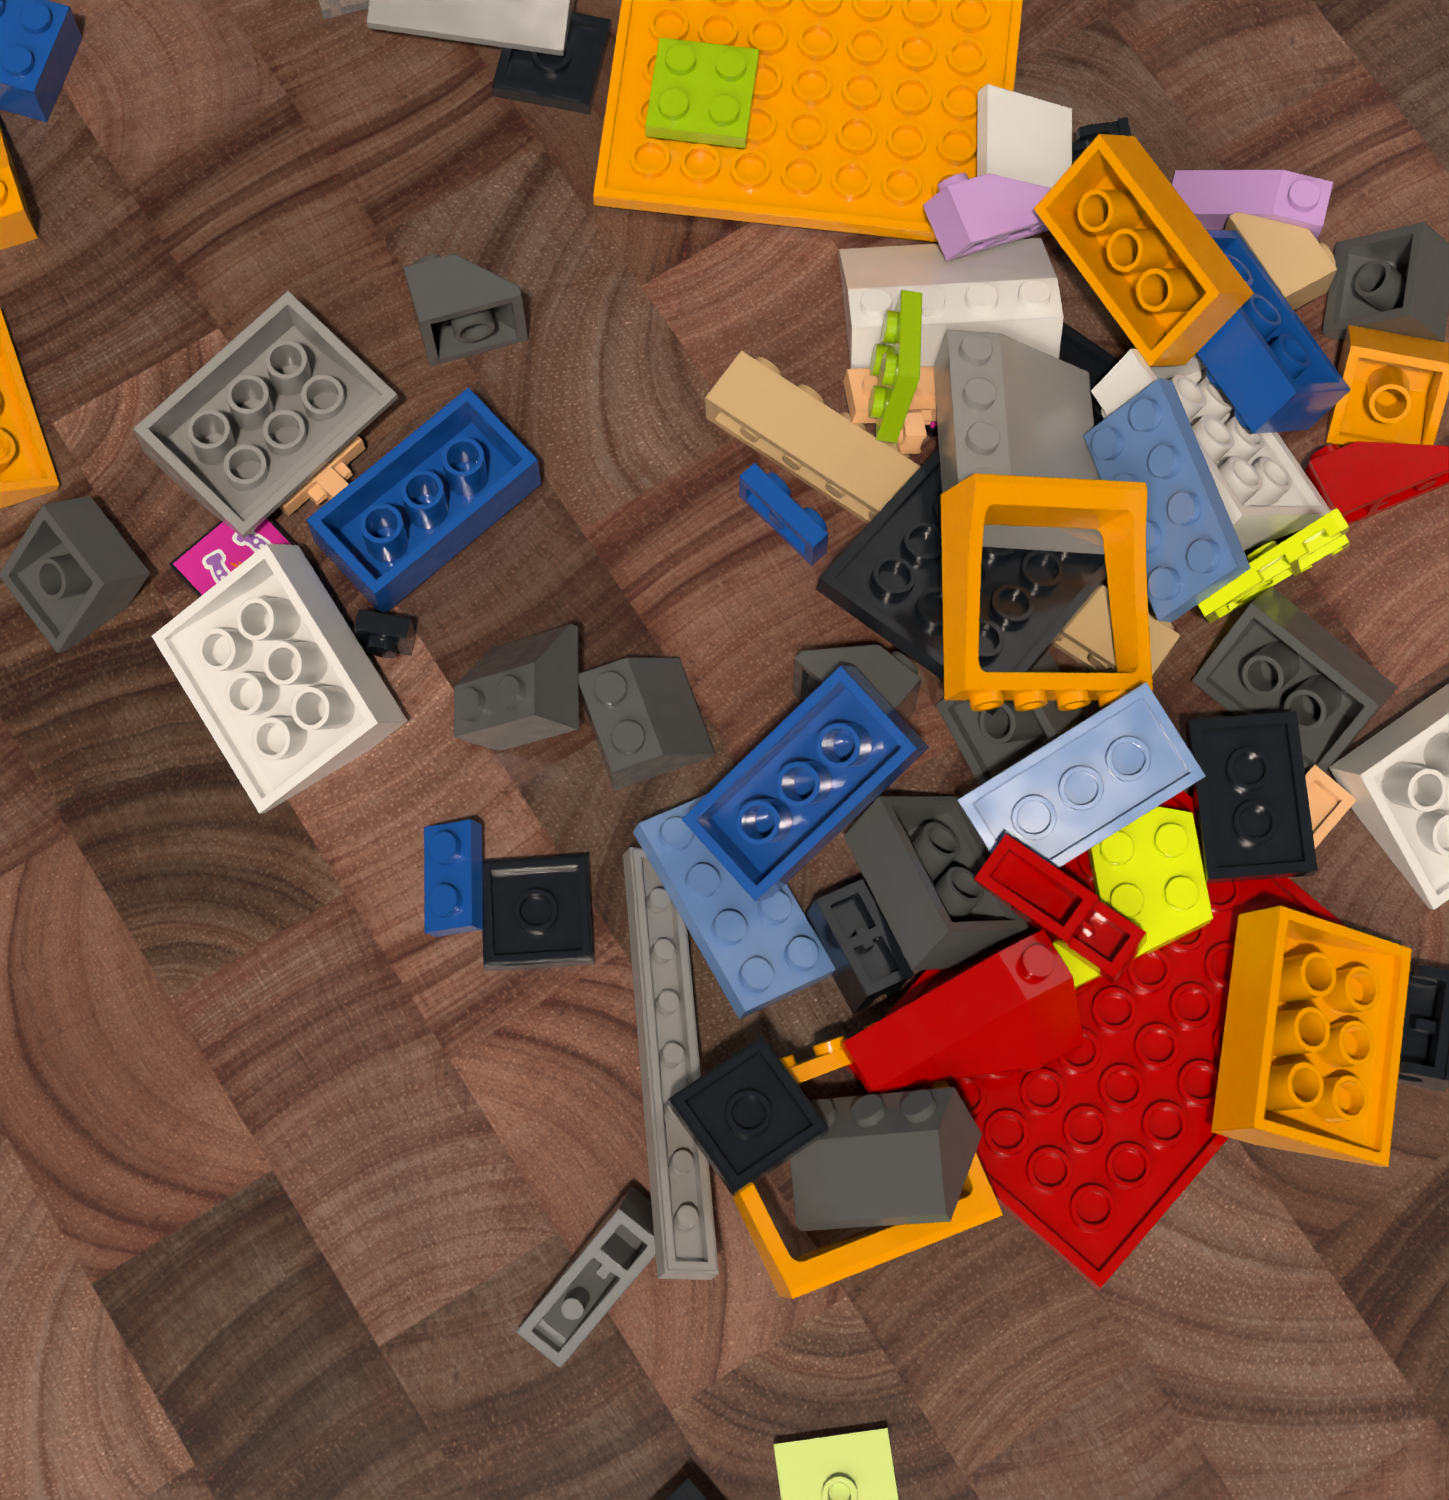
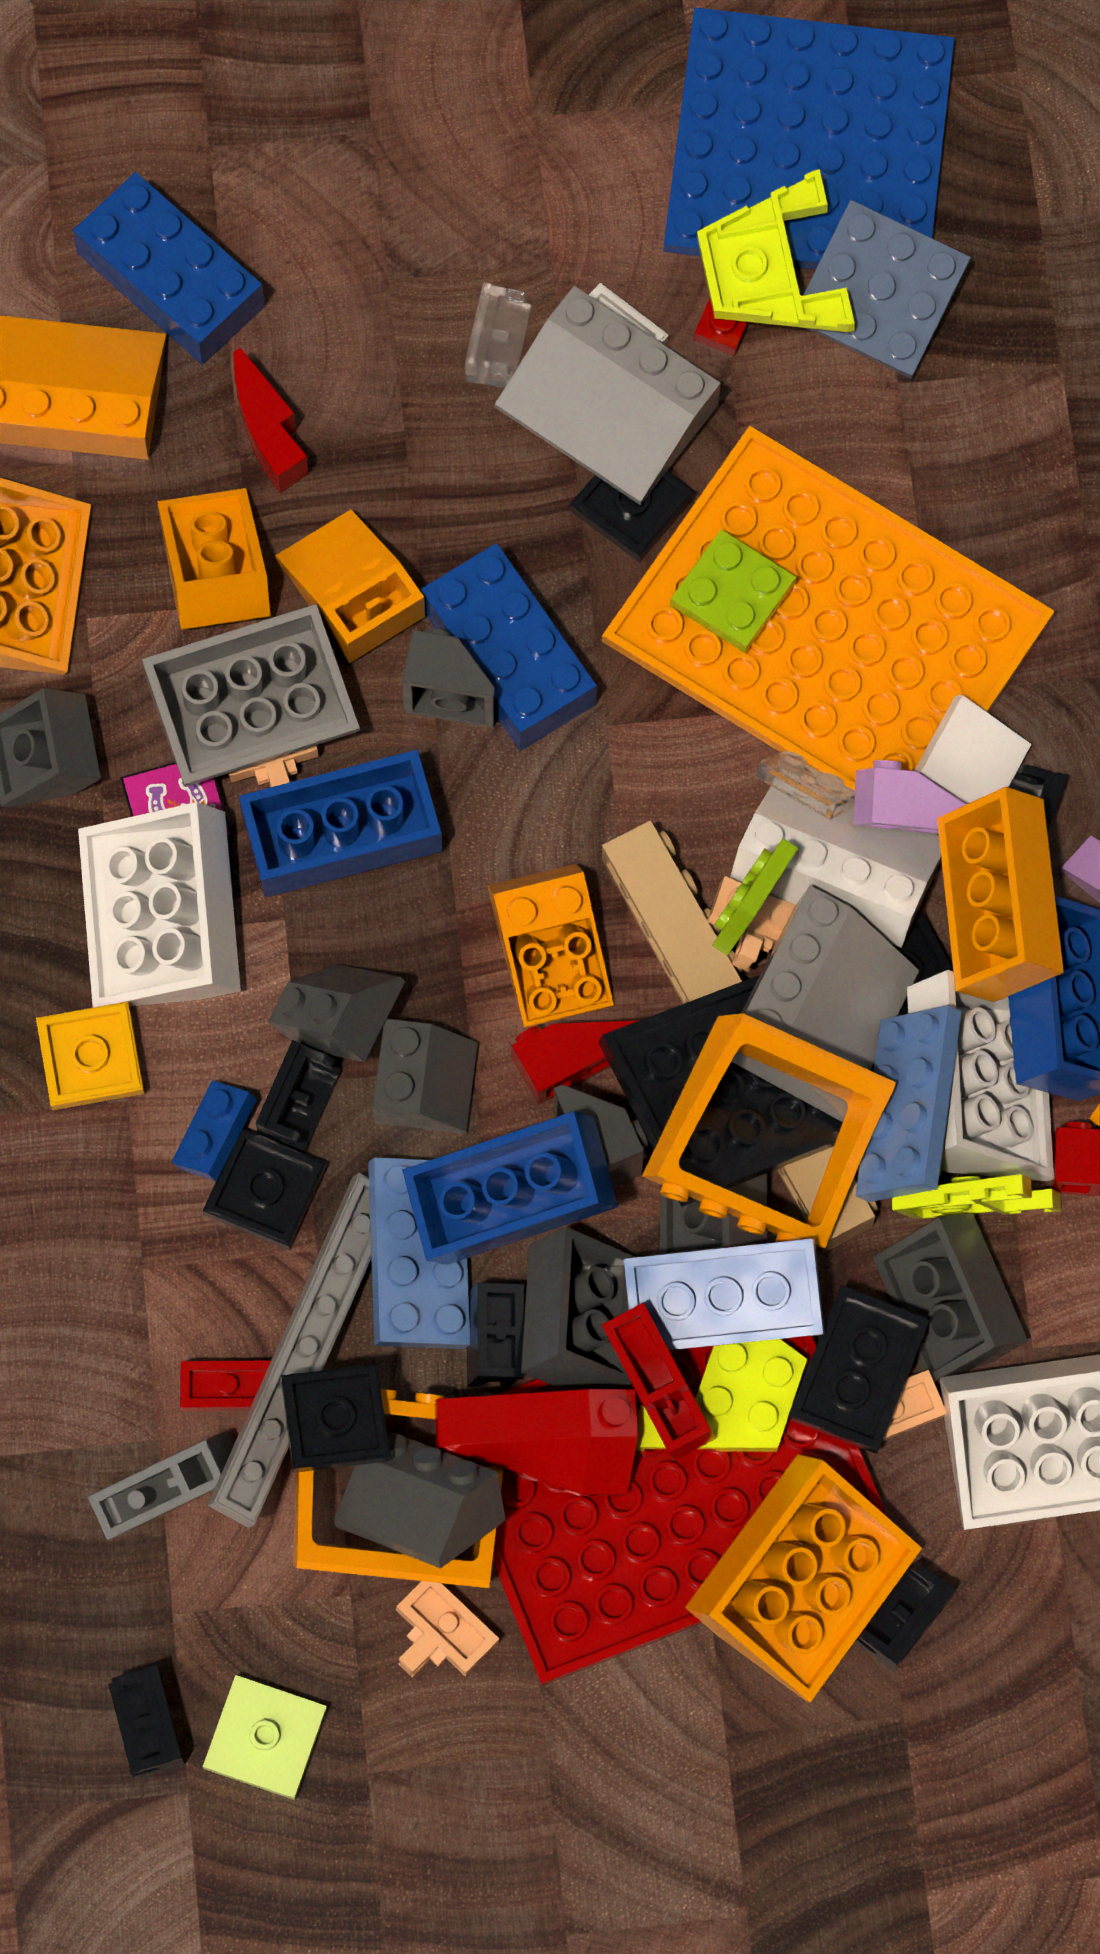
camera: 25 degrees right, 0 degrees up
(145, 145) = (268, 425): none -> red slope
(158, 302) = (214, 559): none -> light orange slope
(282, 863) = (89, 1055): none -> yellow plate
(318, 254) = (355, 583): none -> light orange slope
(384, 634) = (257, 914): black plate -> none
(523, 800) = (298, 1097): none -> black hinge
(551, 257) = (513, 643): none -> blue brick
(599, 1139) = (220, 1385): none -> red plate
(702, 522) = (551, 944): none -> light orange slope
(772, 502) = (626, 985): blue plate -> none
(775, 626) = (561, 1055): none -> red slope
(889, 246) = (814, 789): none -> clear plate
(967, 1284) = (442, 1630): none -> light nougat hinge

